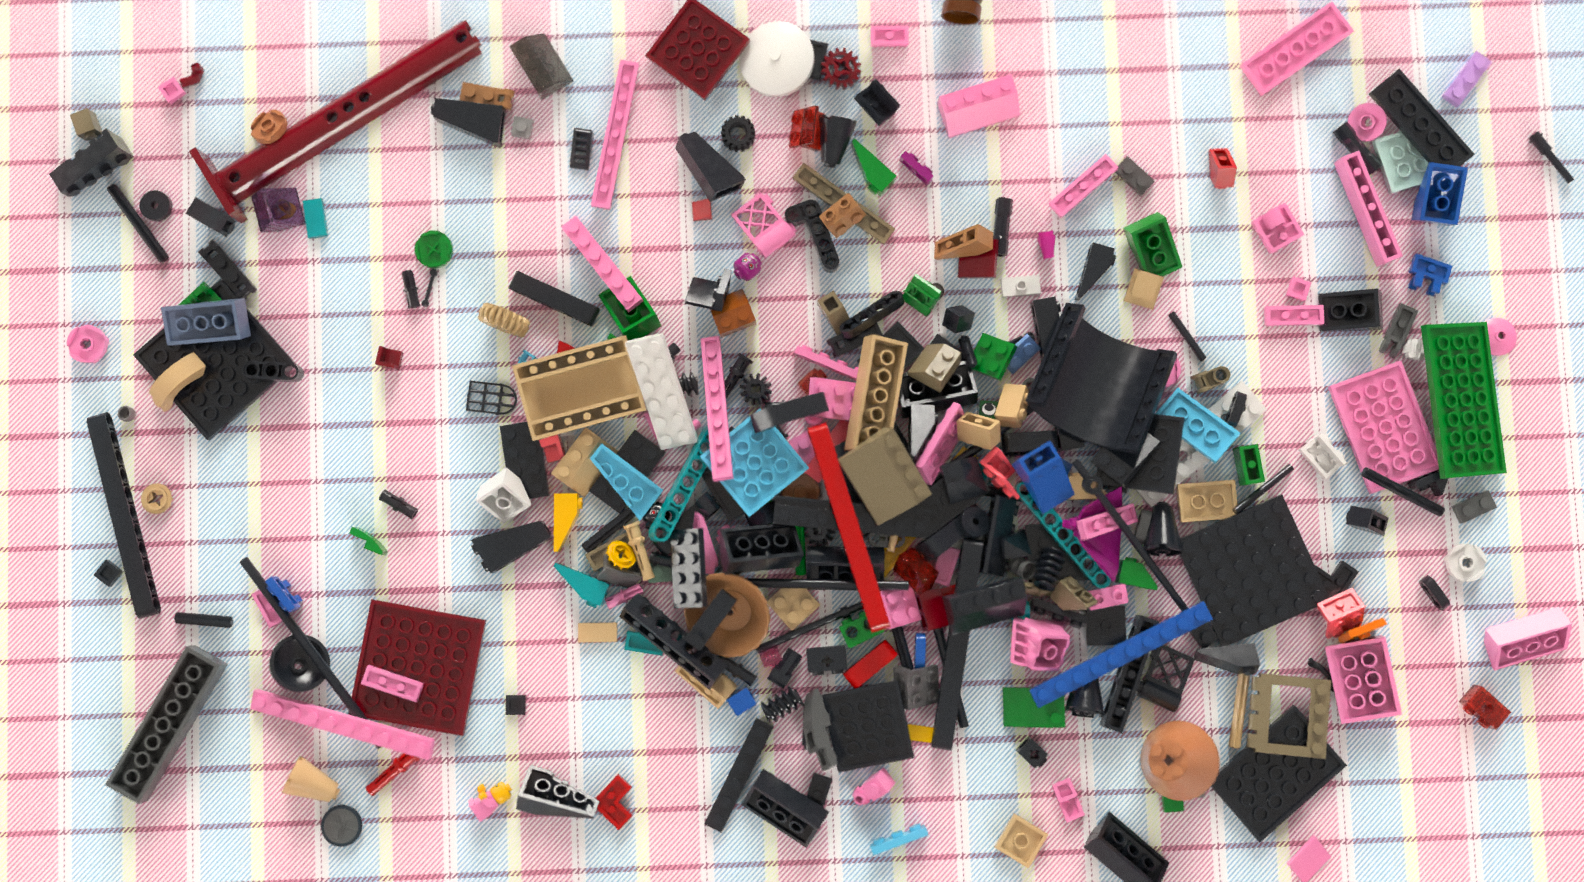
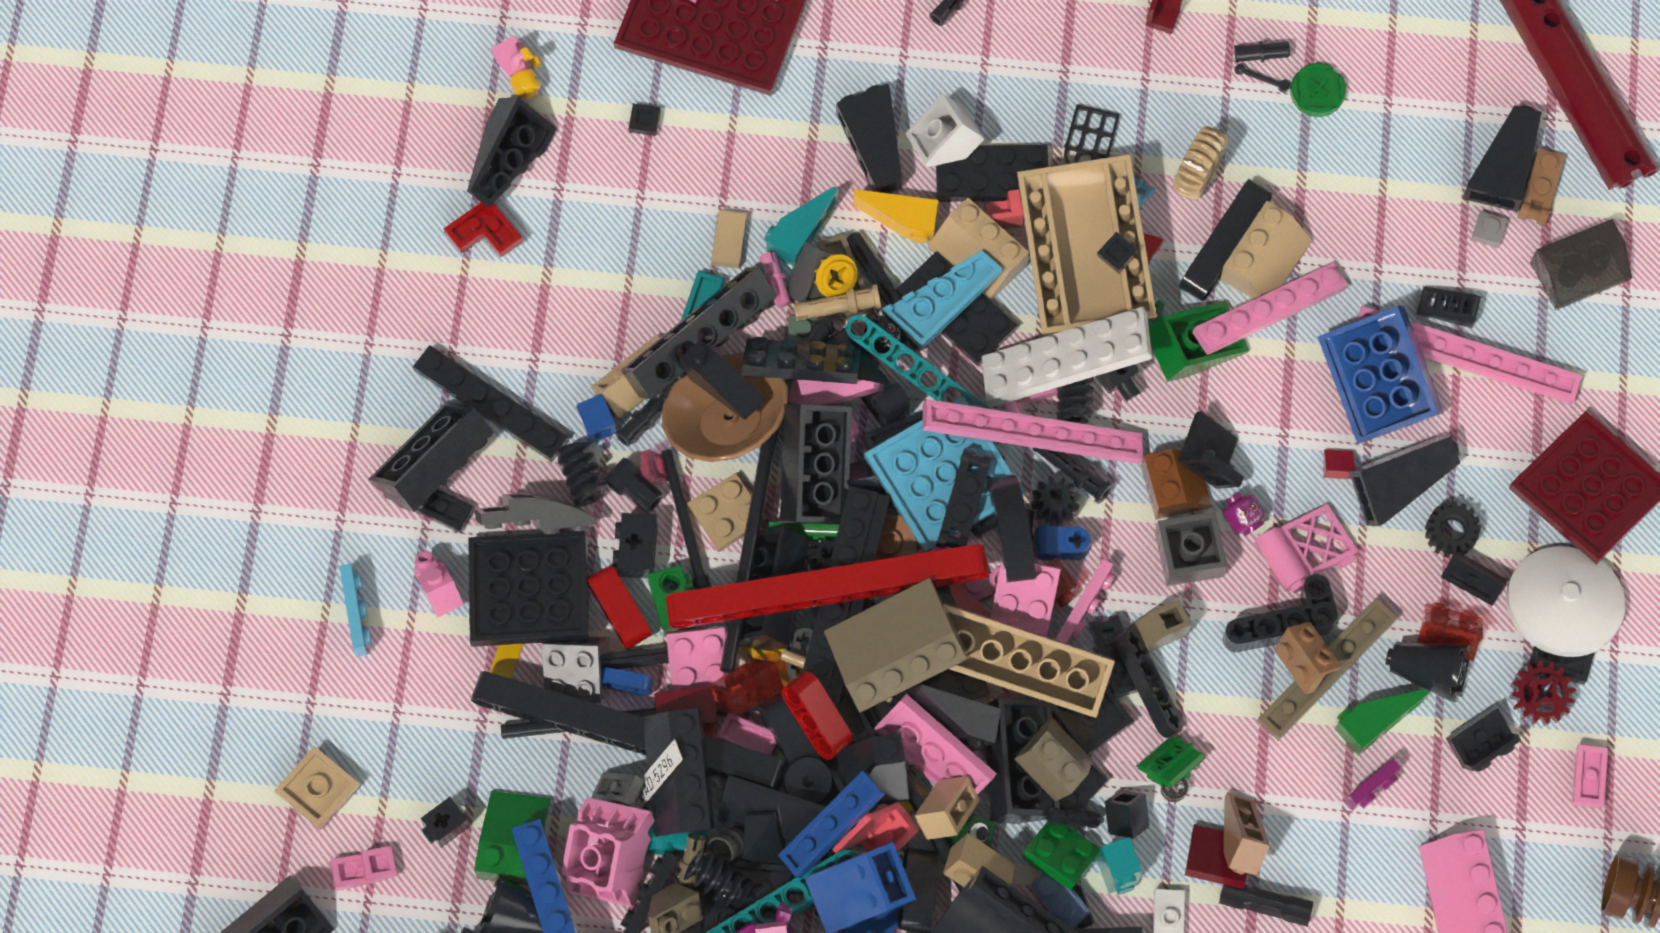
camera: 100 degrees right, 15 degrees down
(561, 270) = (1266, 253): none -> tan slope
(586, 365) = (1117, 252): none -> black plate
(639, 187) = (1380, 374): none -> blue slope
(769, 117) = (1474, 578): none -> black plate
(773, 446) = (964, 500): none -> black plate
(778, 297) = (1190, 548): none -> dark grey brick
(784, 385) = (1059, 543): none -> blue piece
(936, 521) = (817, 715): none -> red beam
(992, 621) = (658, 773): none -> white sticker
(995, 644) = (618, 788): none -> dark grey plate
(997, 318) = (1119, 866): none -> teal brick
(1008, 501) = (831, 824): none -> blue plate

